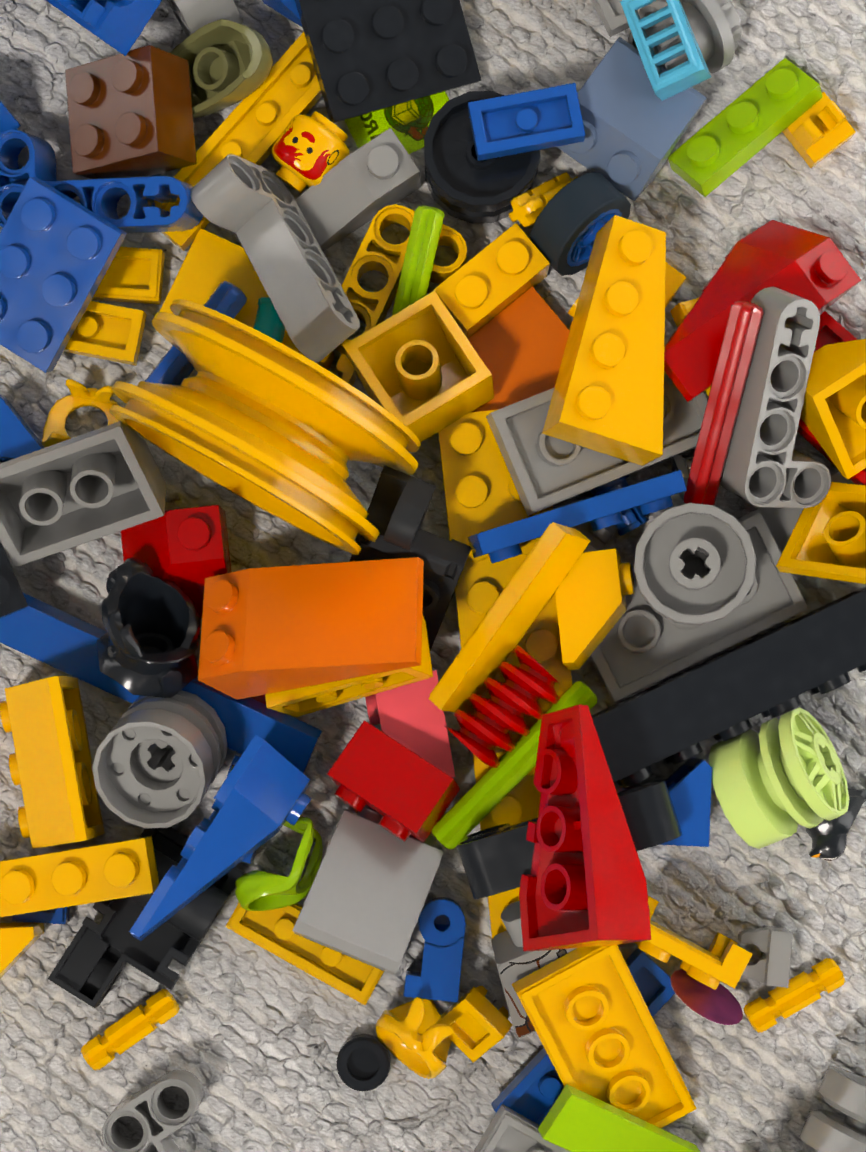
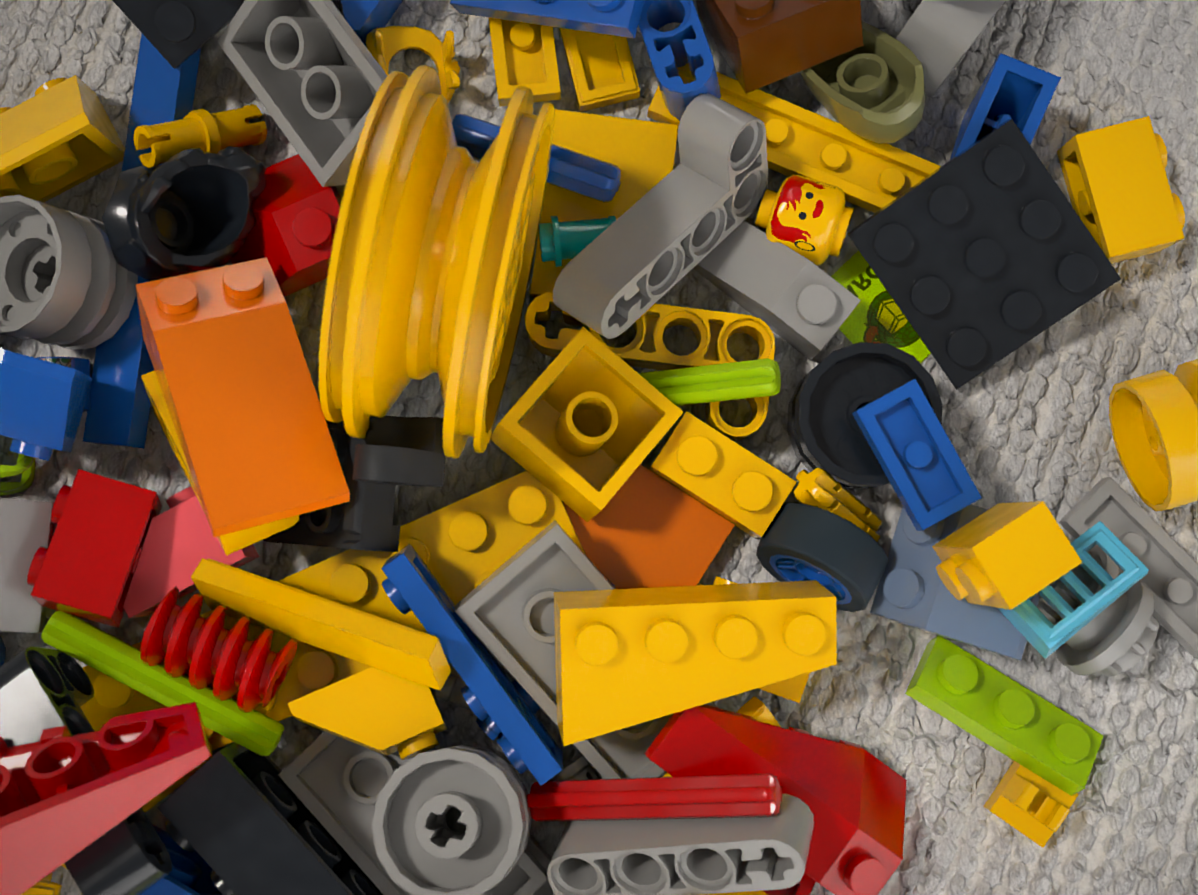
camera: 70 degrees right, 0 degrees up
(84, 605) = (201, 131): none -> yellow pin
(624, 78) = (1005, 555): none -> yellow brick

